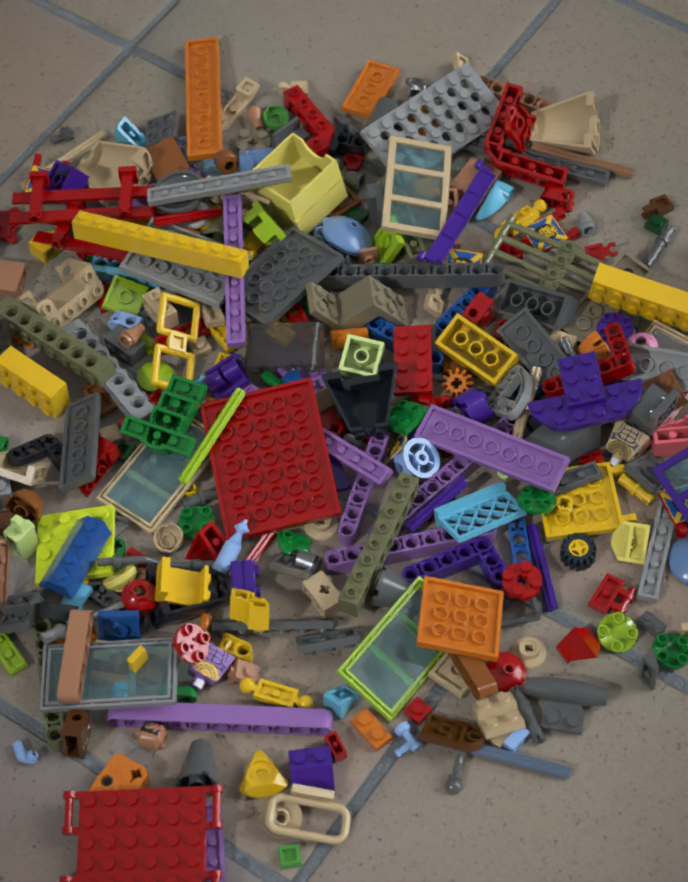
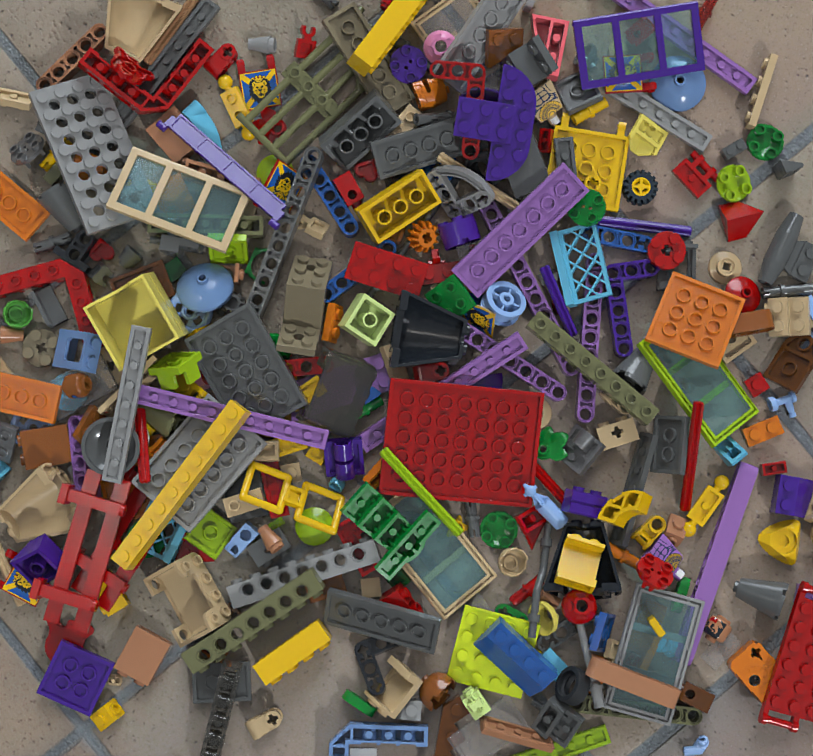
camera: 80 degrees left, 30 degrees up
(322, 656) = (692, 453): none -> red axle

